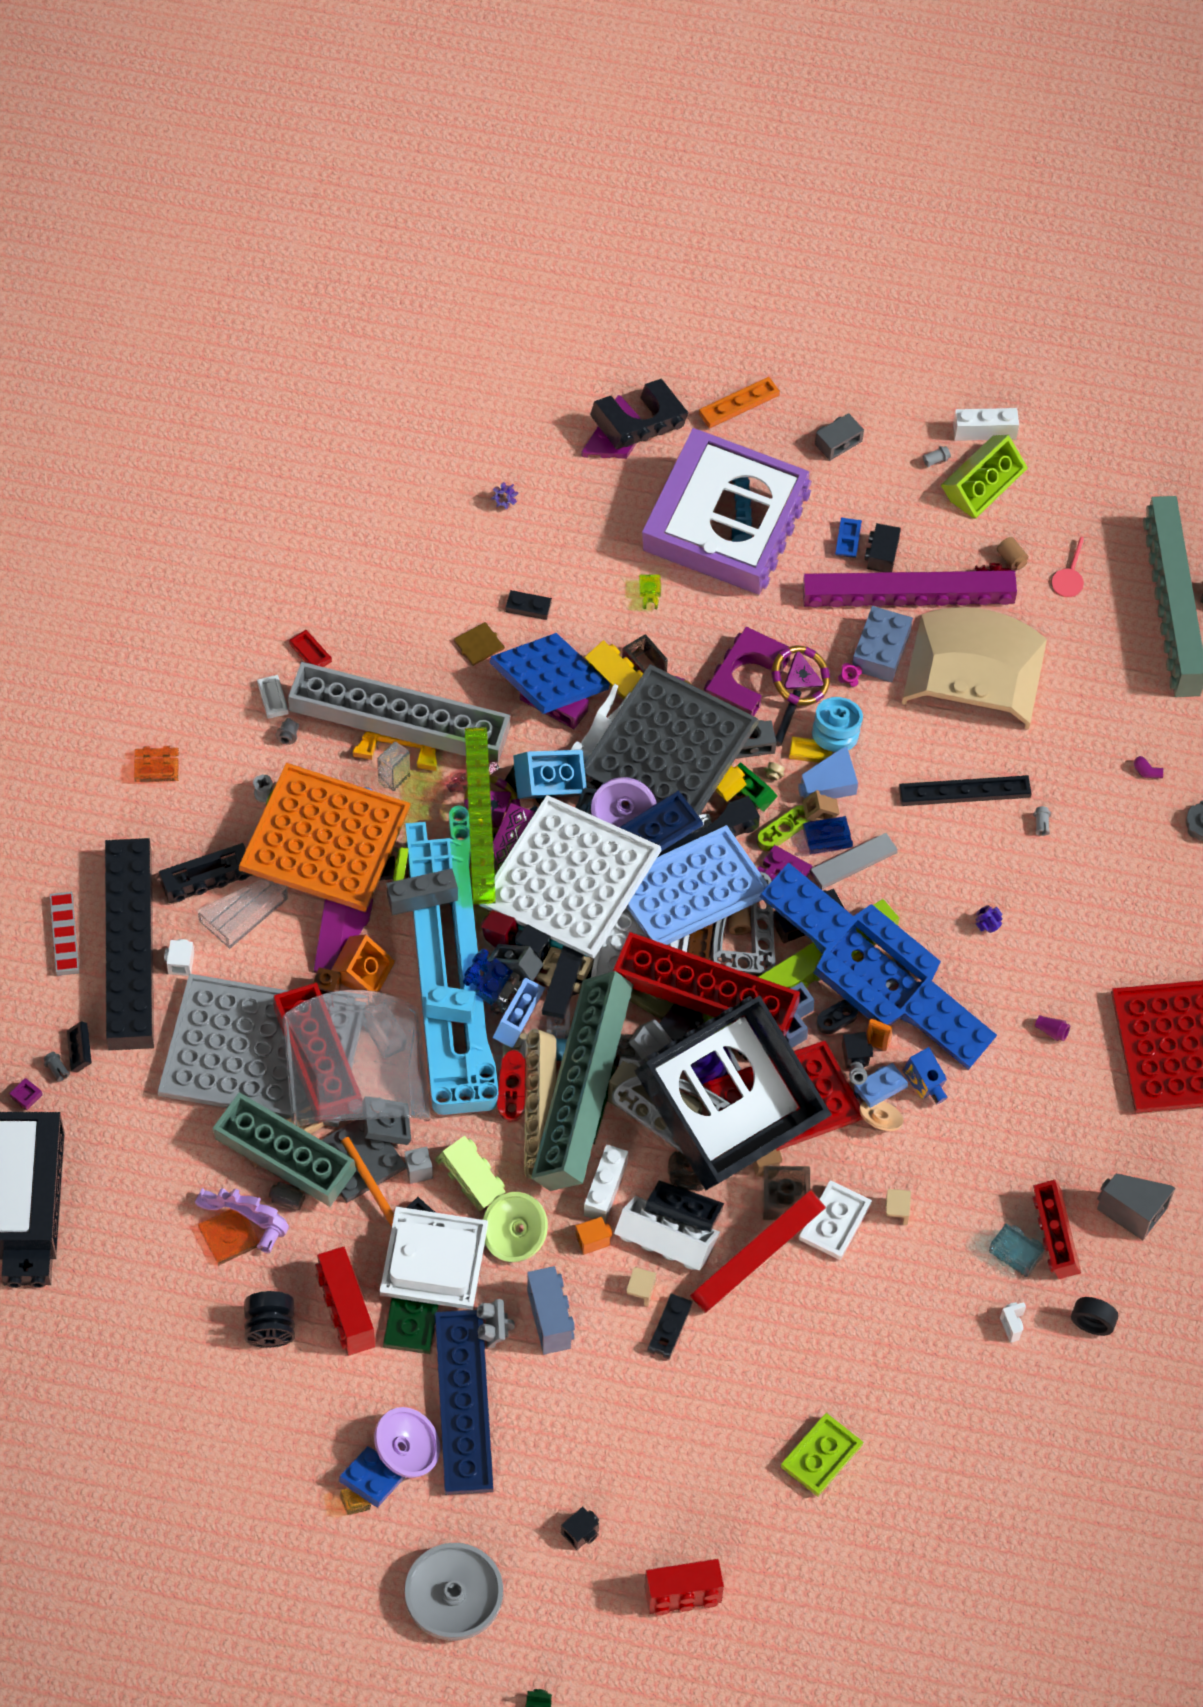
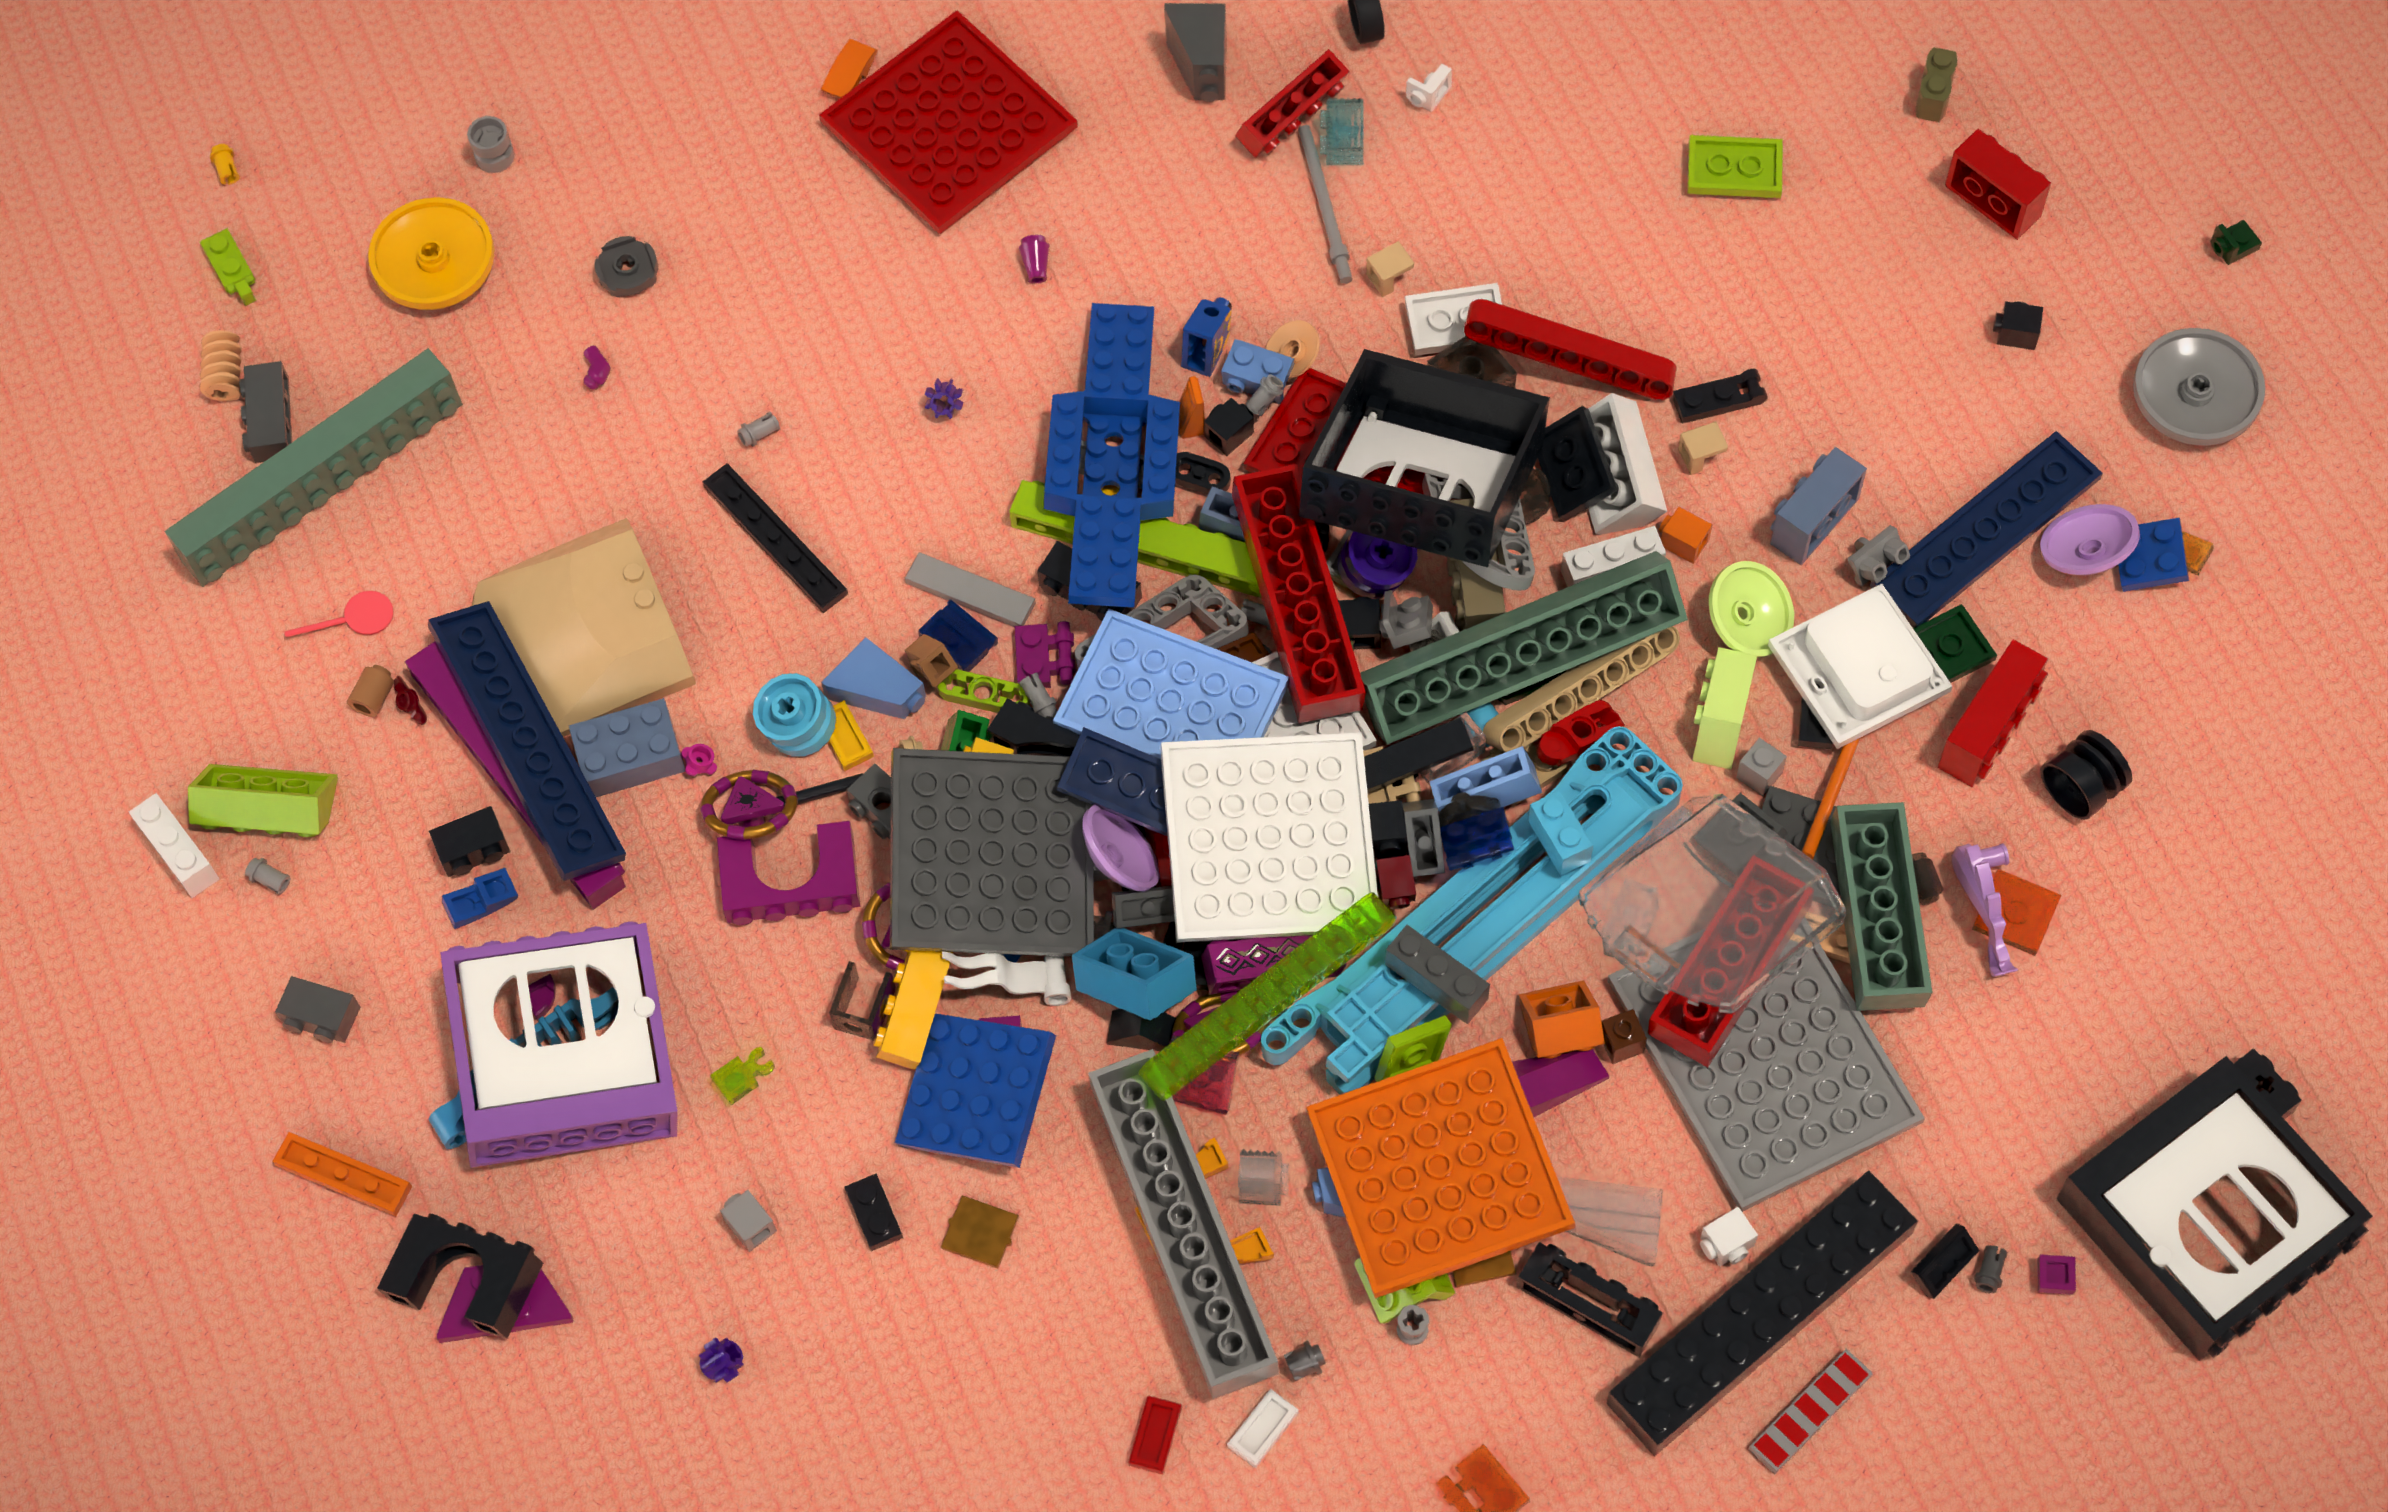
camera: 120 degrees left, 5 degrees up
(568, 547) = (748, 1220): none -> light grey brick
(756, 845) = (1038, 696): none -> light grey pin
(784, 1614) = (1936, 84): none -> olive brick
(919, 592) = (526, 741): none -> dark blue plate
(932, 1190) = (1338, 251): none -> light grey bar

